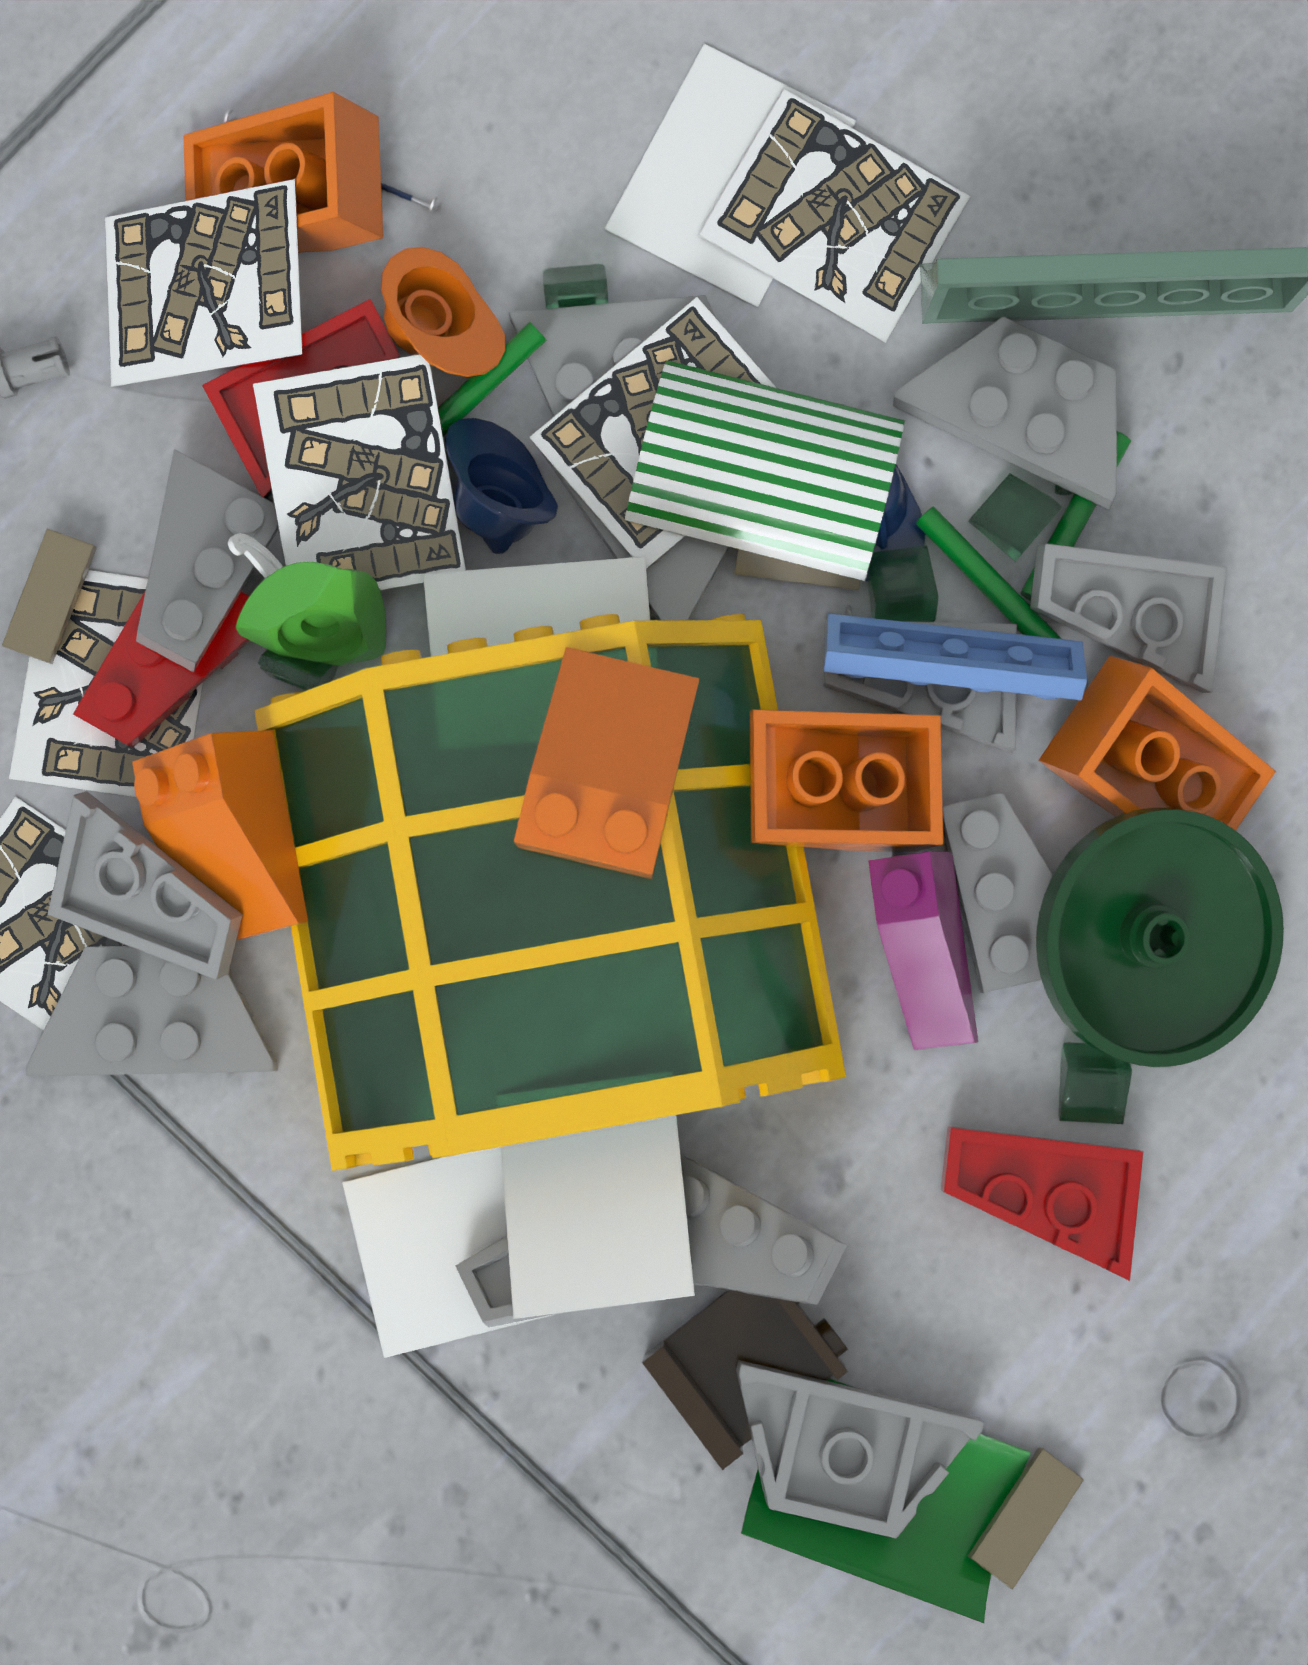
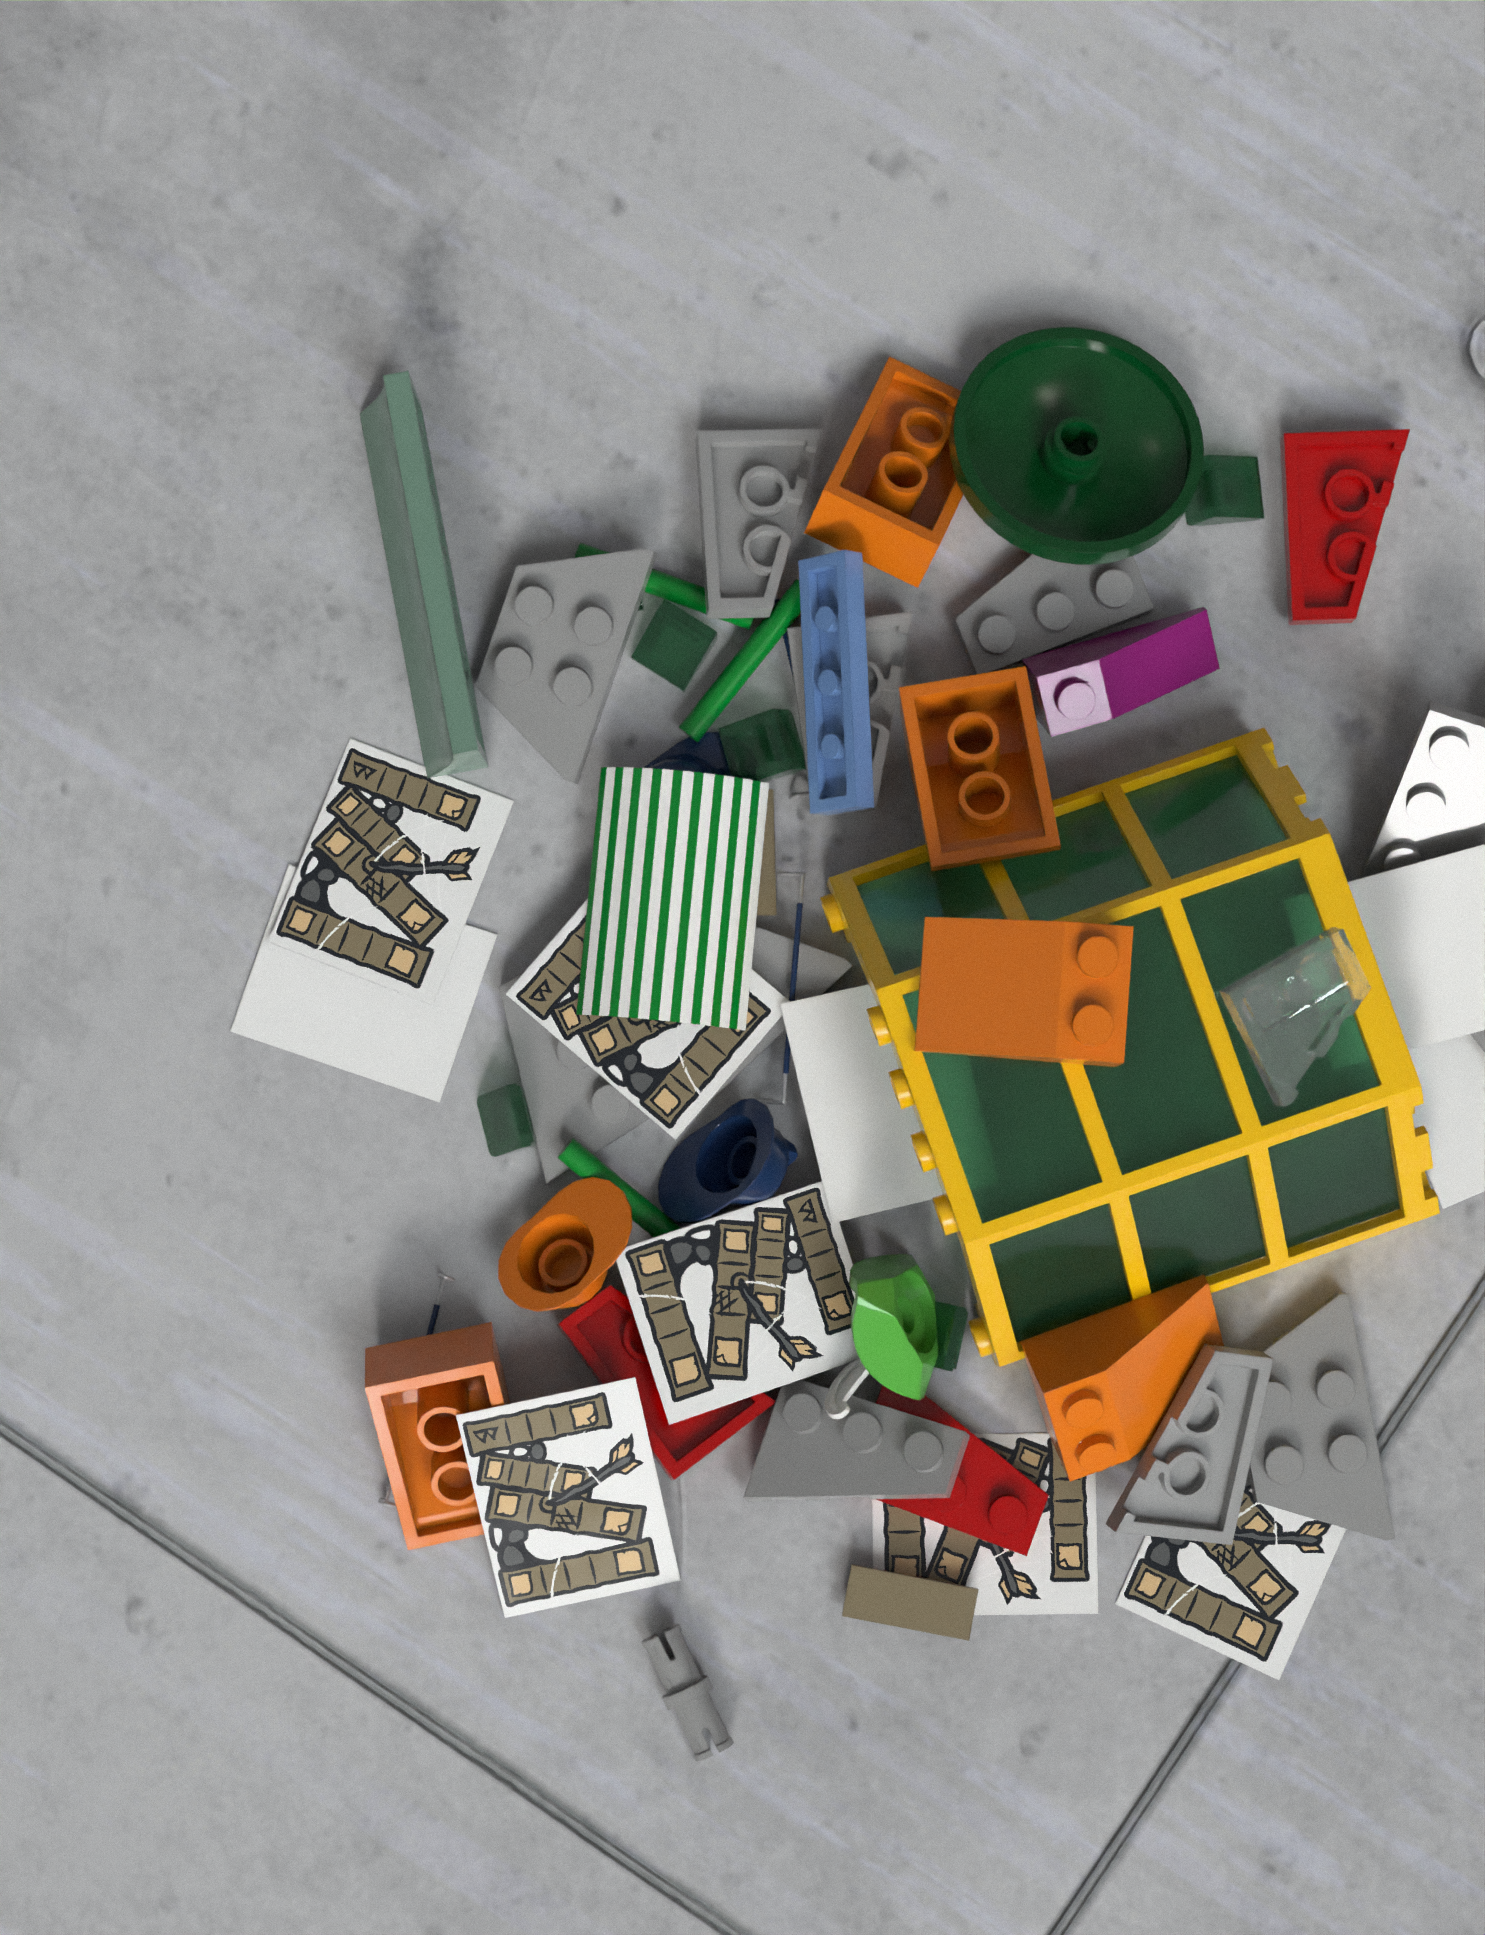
camera: 95 degrees left, 0 degrees up
(546, 1037) = (1295, 1008): none -> clear wing
(668, 576) = (792, 981): none -> dark blue piece

